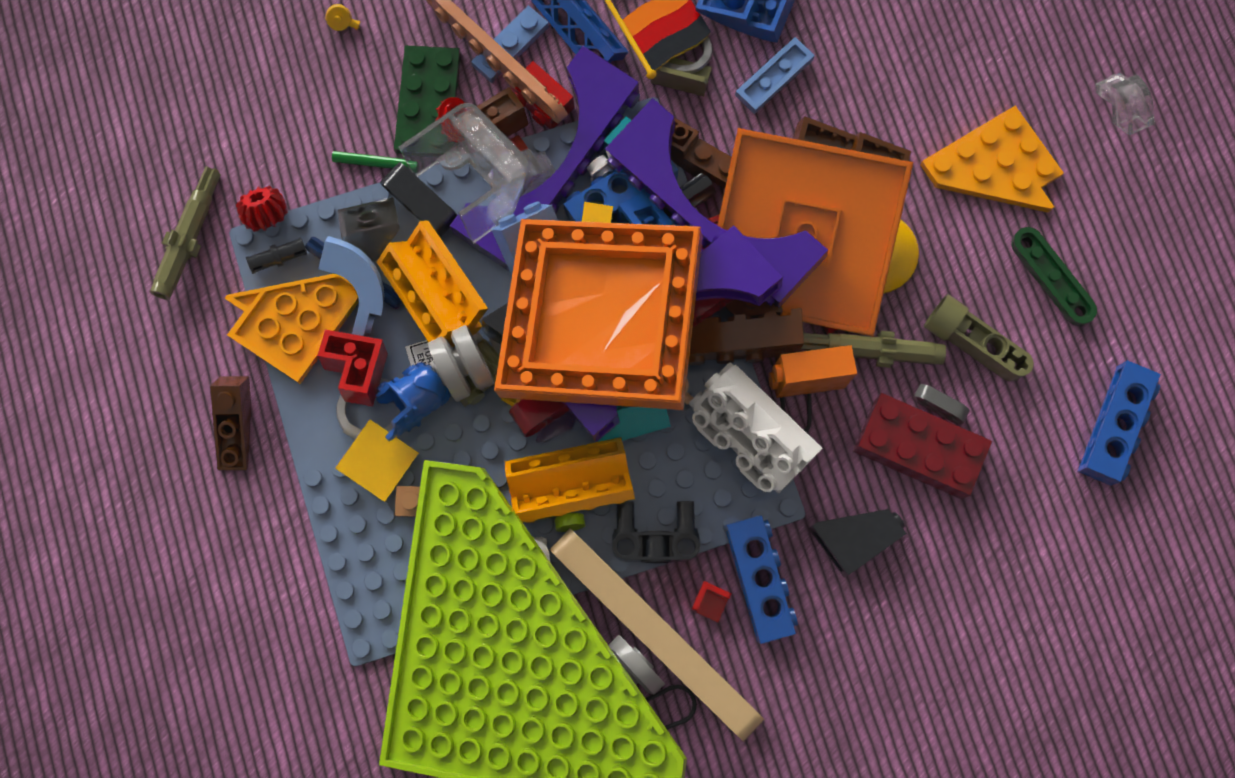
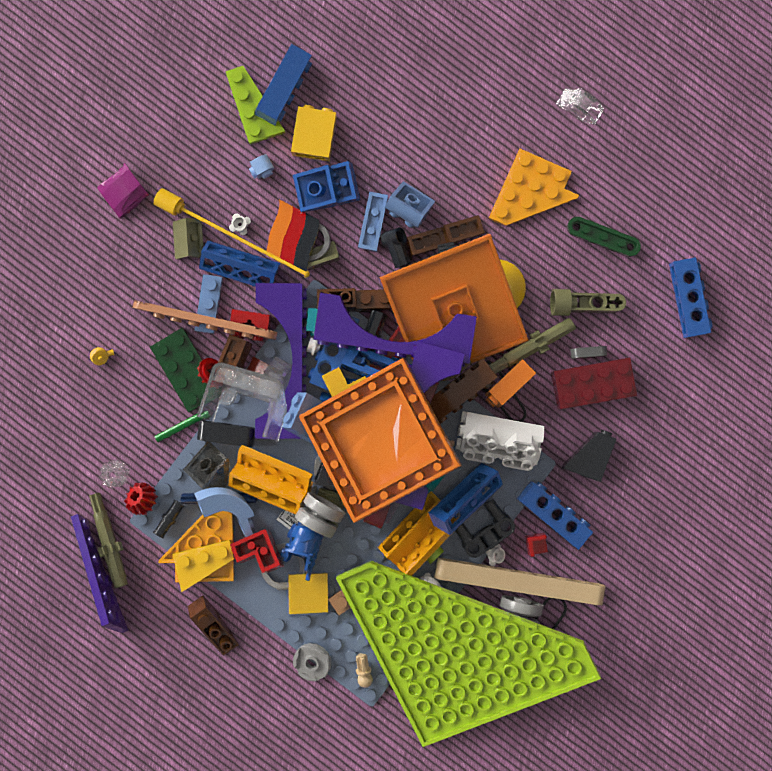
camera: 35 degrees left, 10 degrees up
(129, 287) = (99, 581): none -> dark purple wing
(253, 159) = (120, 471): none -> clear brick
(274, 329) = (200, 562): none -> yellow wing
(334, 553) = (316, 653): none -> light grey tile
(369, 620) = (363, 670): none -> tan axle
(653, 582) = (495, 555): none -> white plate
(658, 471) = (465, 498): none -> blue brick
(784, 113) = (395, 242): none -> black piece
(832, 81) = (409, 205): none -> medium blue brick

